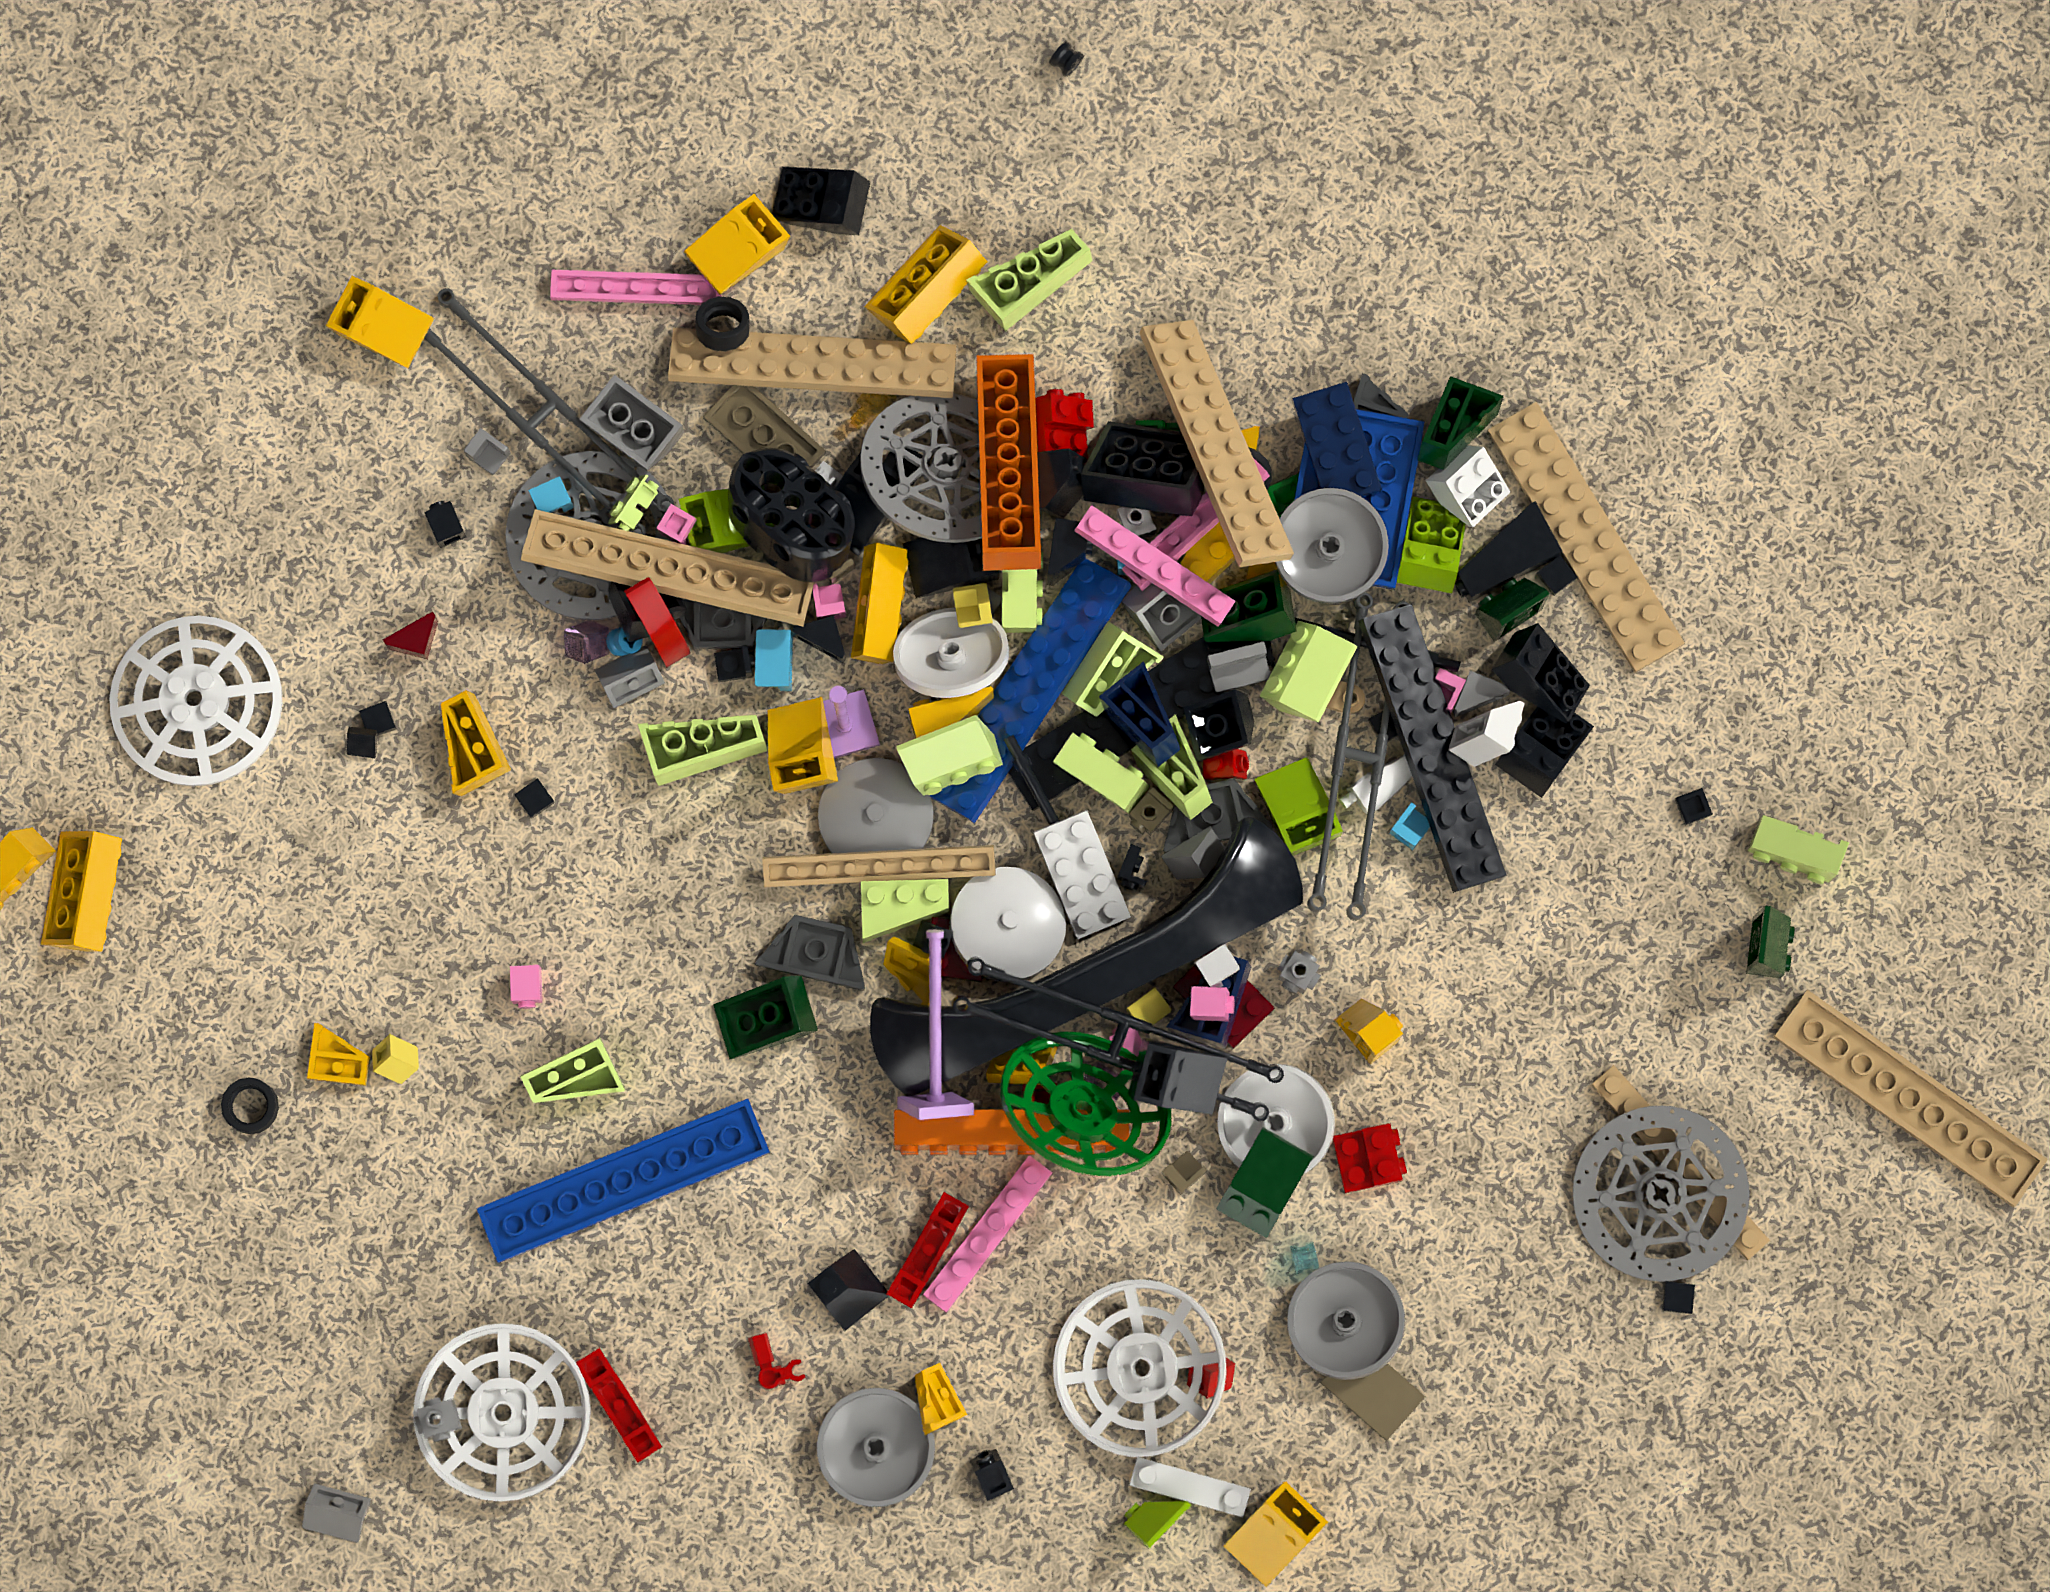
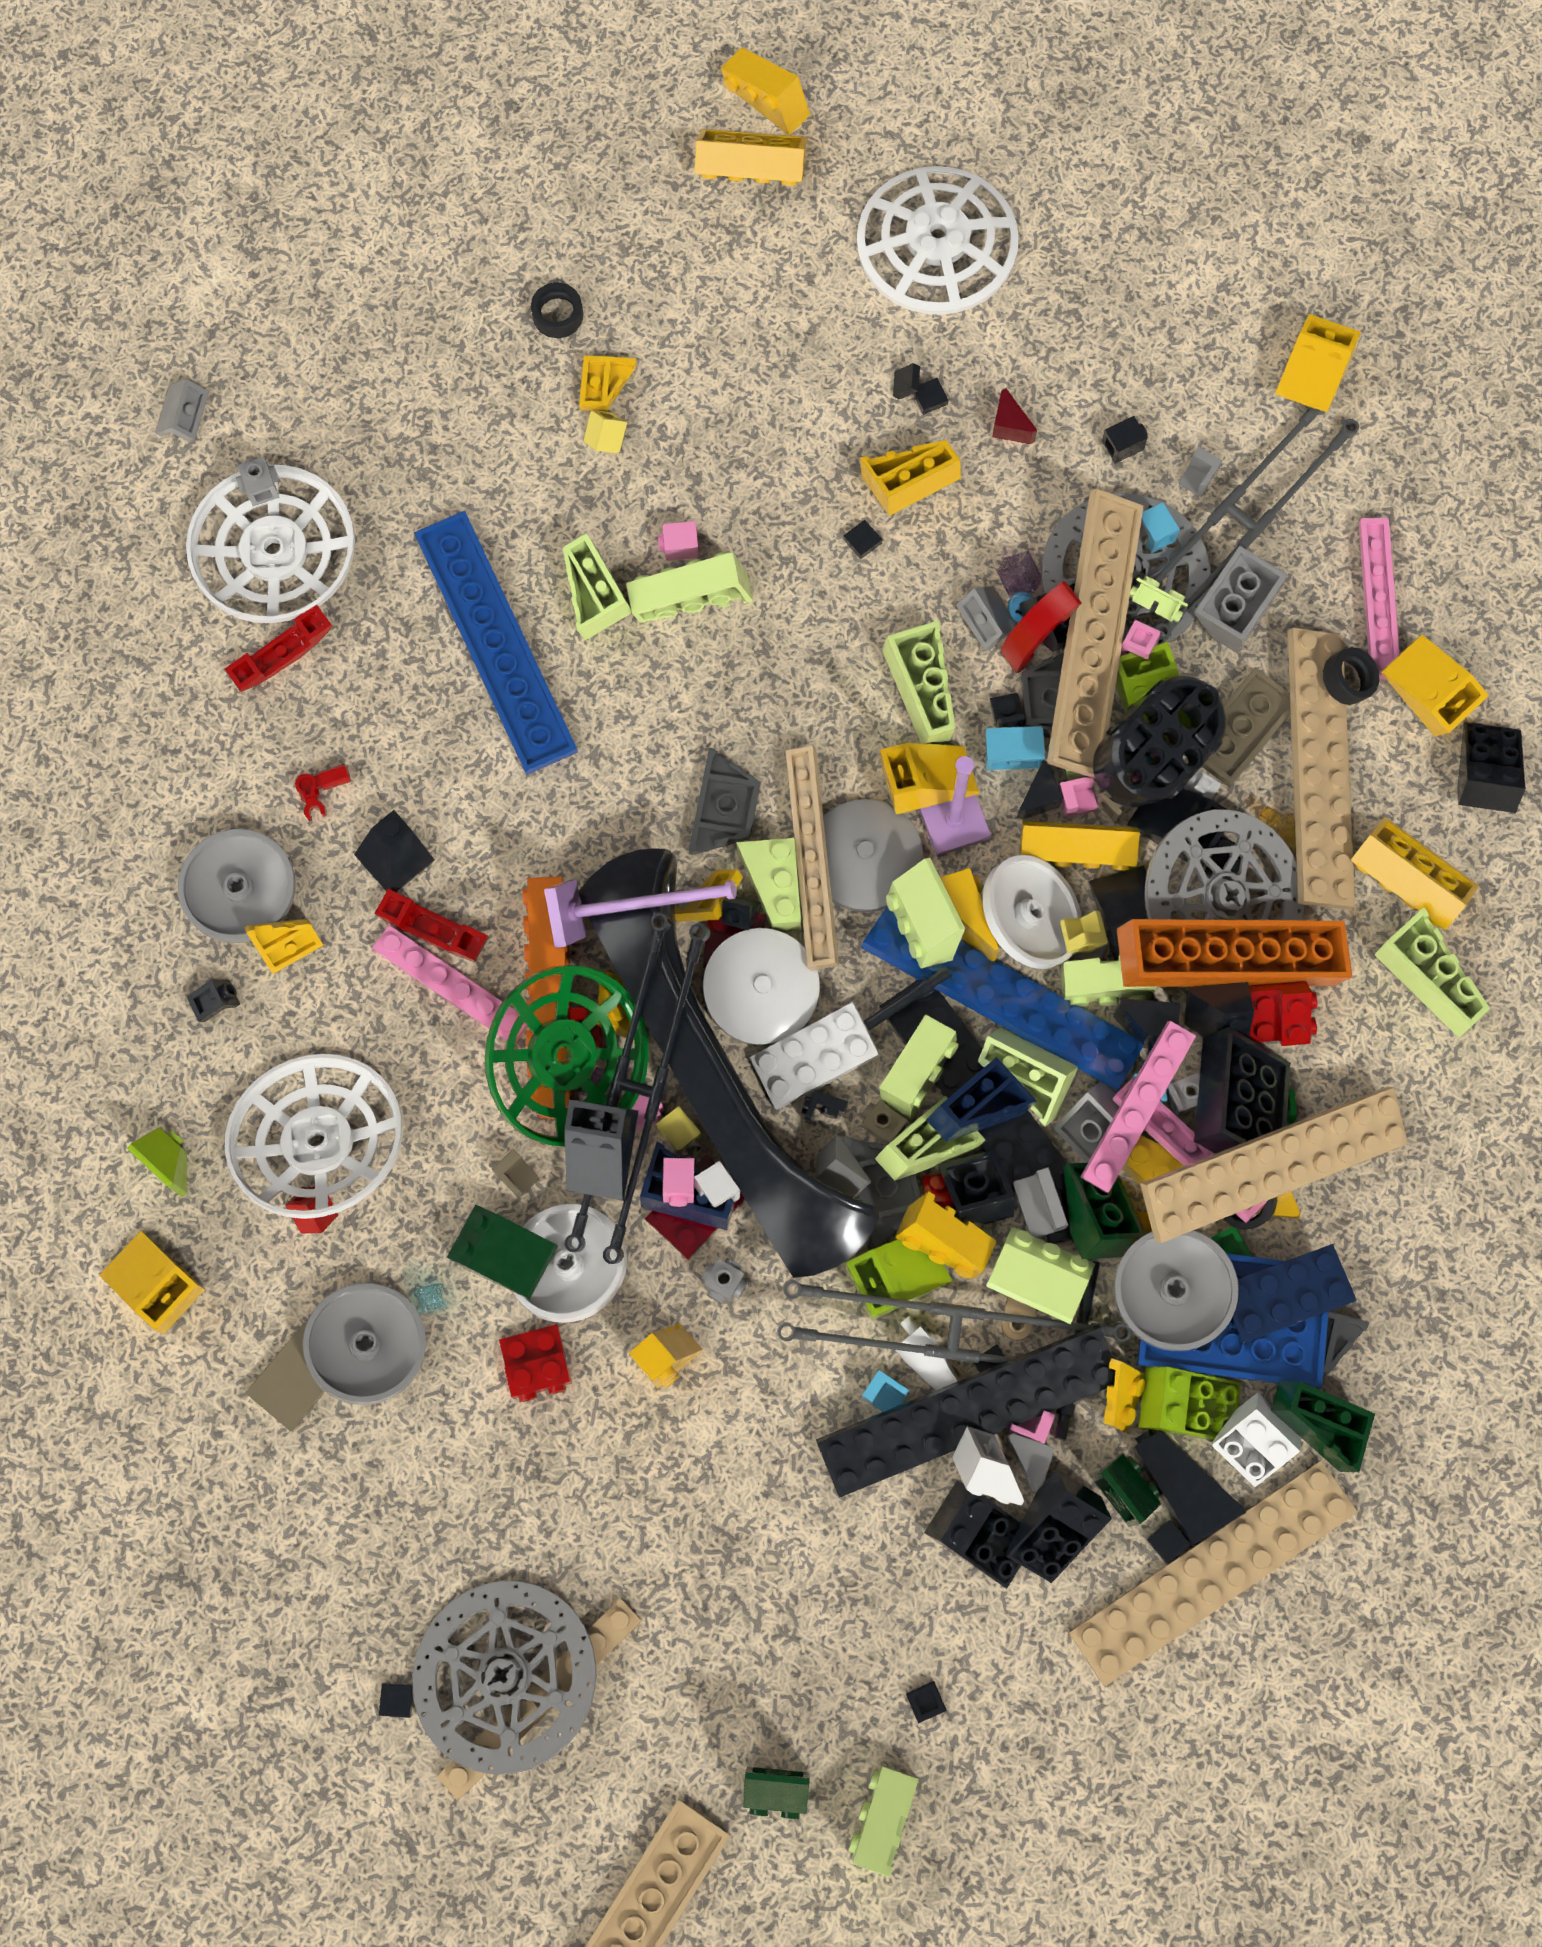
camera: 90 degrees right, 5 degrees down
(581, 978) = (689, 587): none -> yellowish green wedge
(765, 1016) = (658, 762): dark green slope -> none
(1190, 1487) = (199, 1196): white plate -> none
(1268, 759) = (945, 1238): none -> yellow wedge
(1426, 605) = (1123, 1396): none -> yellow wing

